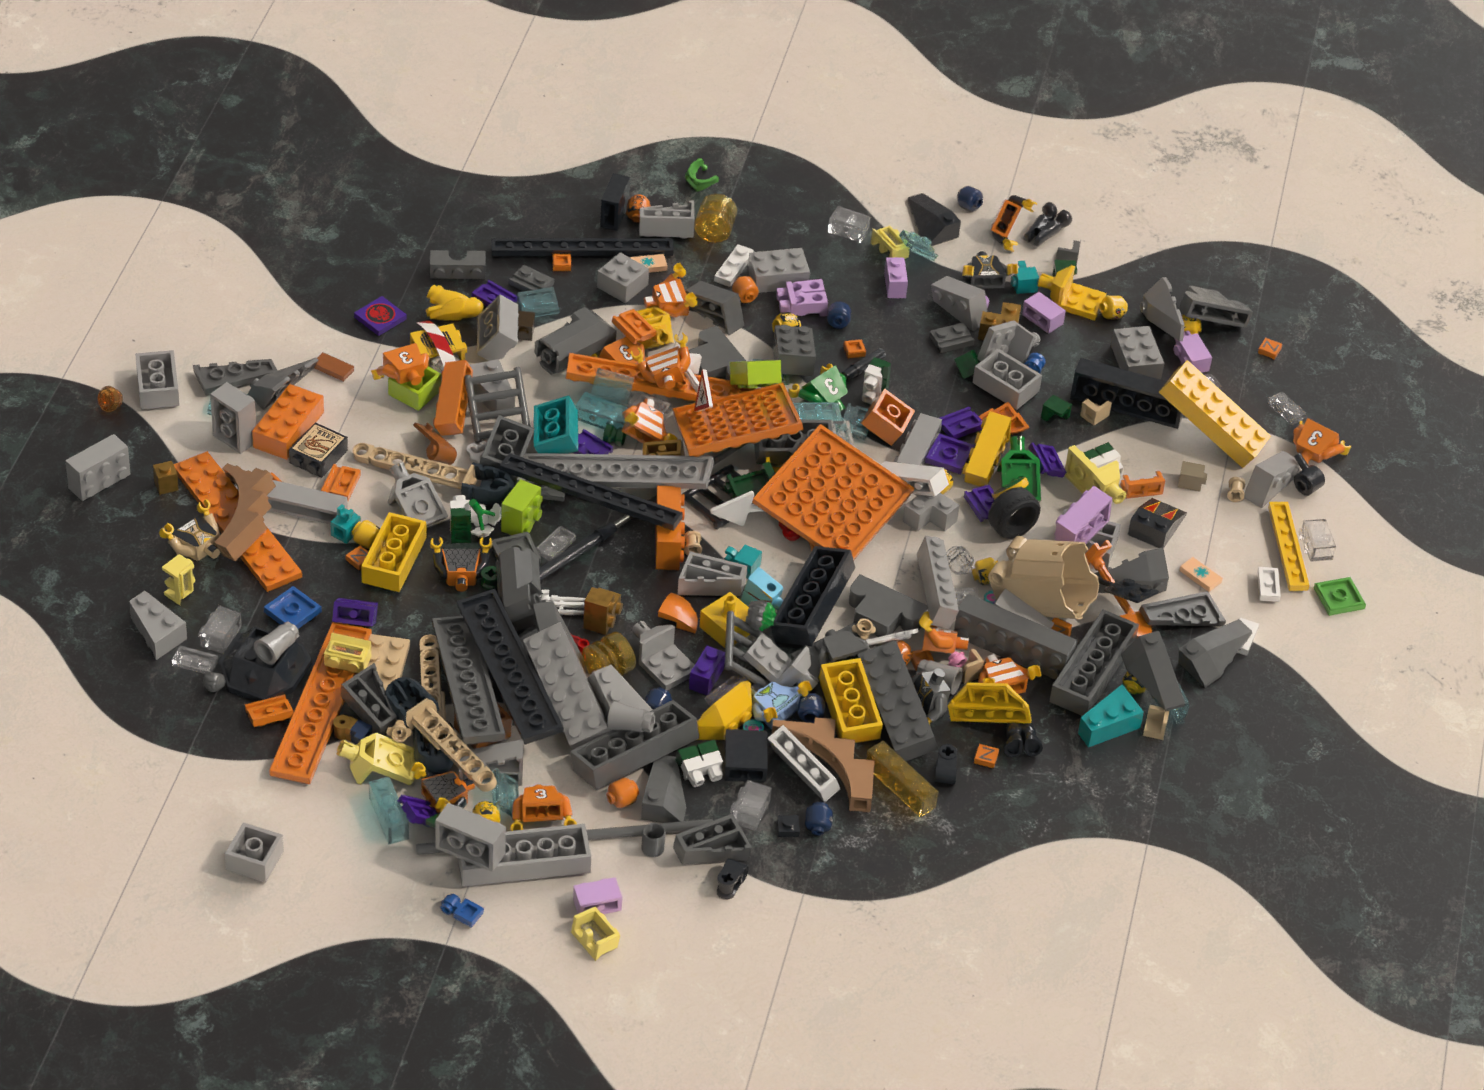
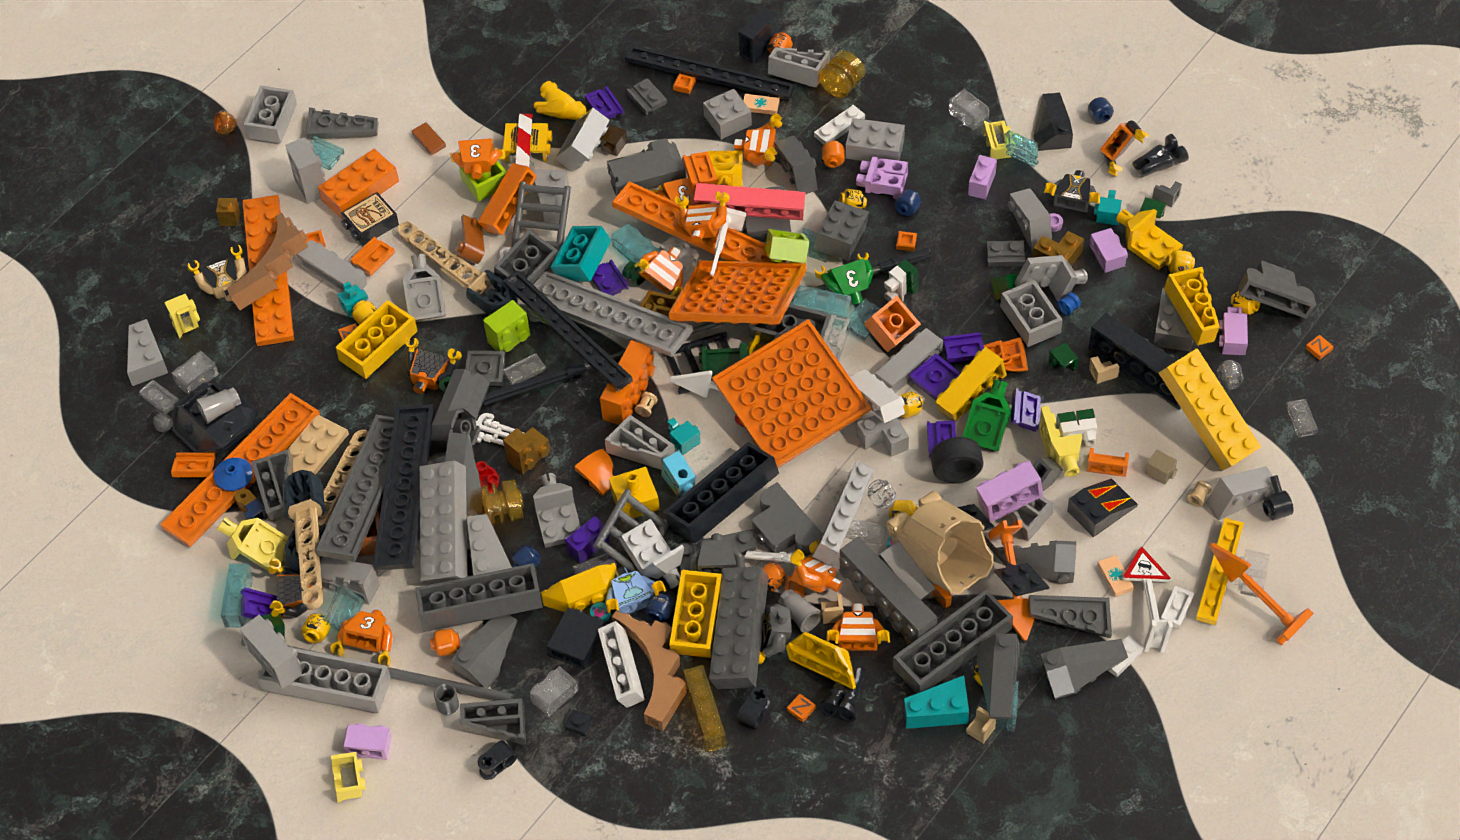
camera: 30 degrees right, 10 degrees up
(98, 467) = (174, 187): light grey brick -> none
(254, 852) = (102, 601): light grey brick -> none
(272, 385) = (360, 144): dark grey wedge -> none
(292, 607) = (265, 370): blue plate -> none
(318, 706) = (236, 479): none -> blue dish
(347, 653) = (280, 430): light yellow window -> none
(355, 612) = (312, 389): dark purple brick -> none
(380, 316) = (496, 98): dark purple tile -> none
(405, 732) = (277, 525): tan plate -> none
(446, 268) = (599, 69): dark grey arch -> none
(460, 520) = (448, 323): dark green hips -> none
(465, 912) = (248, 714): blue plate -> none
(480, 516) = (471, 323): white plant -> none
(539, 301) = (639, 119): clear light blue plate -> none
(612, 386) = (649, 225): clear light blue plate -> none
(630, 718) = (477, 573): light grey plant -> none
(698, 184) = (848, 24): bright green helmet -> none
(699, 762) = (539, 635): white hips -> none
(704, 341) = (755, 201): none -> coral brick
(760, 615) = (654, 500): dark grey piece -> none
(818, 818) = (607, 725): dark blue head -> none
(864, 624) = (745, 538): tan plate -> none
(957, 659) = (821, 600): bright pink plate -> none
(1017, 483) = (971, 431): tile -> none
(1154, 332) = (1193, 303): none -> yellow wedge
(1161, 309) = (1222, 278): light grey wedge -> none
(1269, 601) = (1147, 570): none -> white piece
(1306, 531) = (1236, 567): none -> orange piece
(1317, 442) = (1308, 466): orange torso -> none
(1339, 596) = (1245, 641): bright green tile -> none

